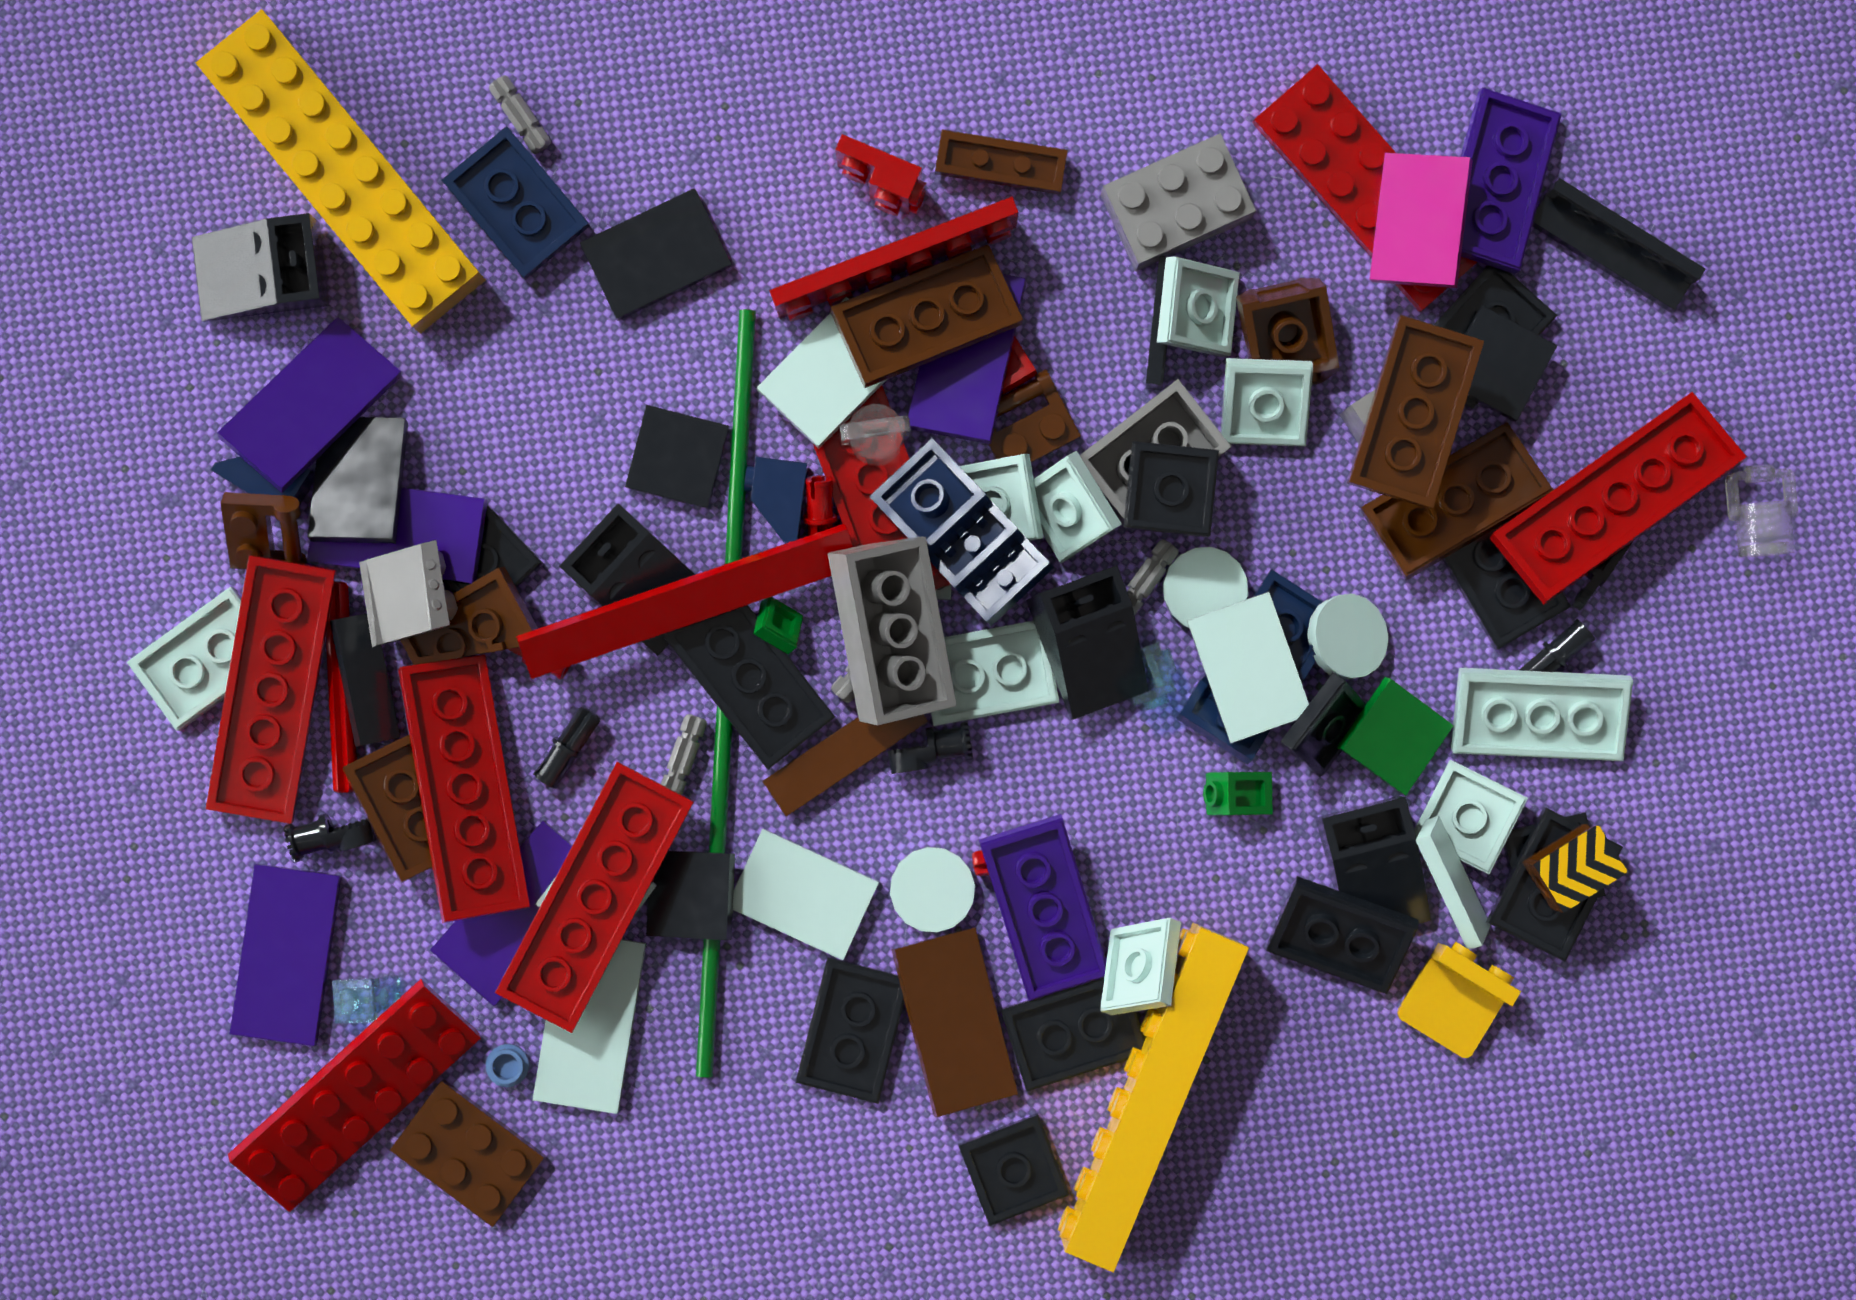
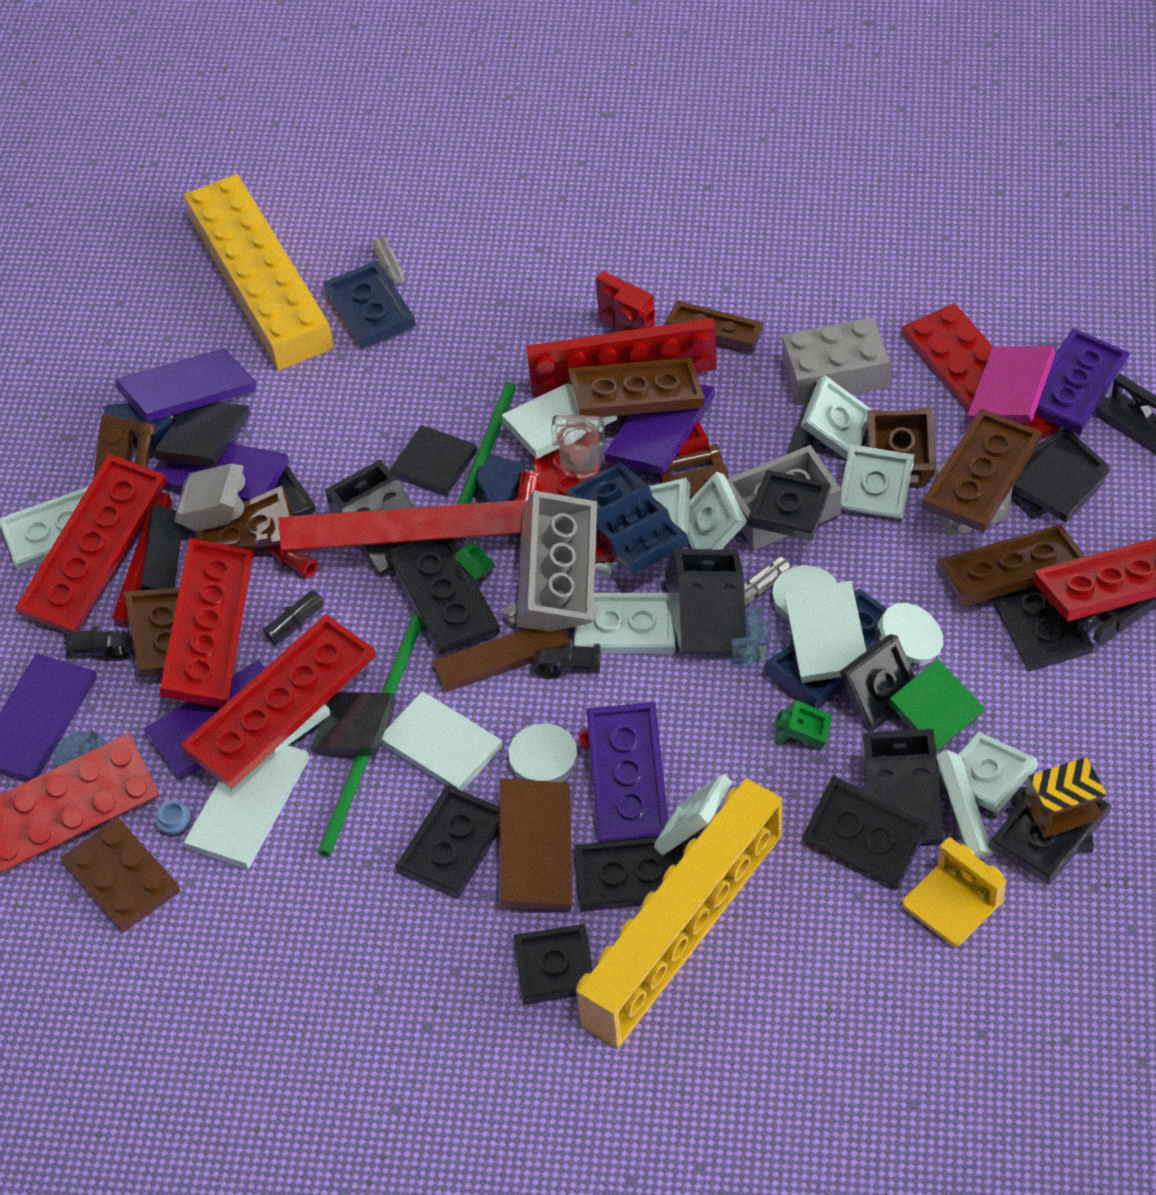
camera: 20 degrees right, 35 degrees down
(261, 268) = (185, 311): slope -> none
(656, 254) = (456, 346): black tile -> none
(684, 753) = (383, 631): light grey axle -> none
(1541, 714) = (1058, 710): light aqua tile -> none
(1560, 649) = (1076, 674): black axle -> none

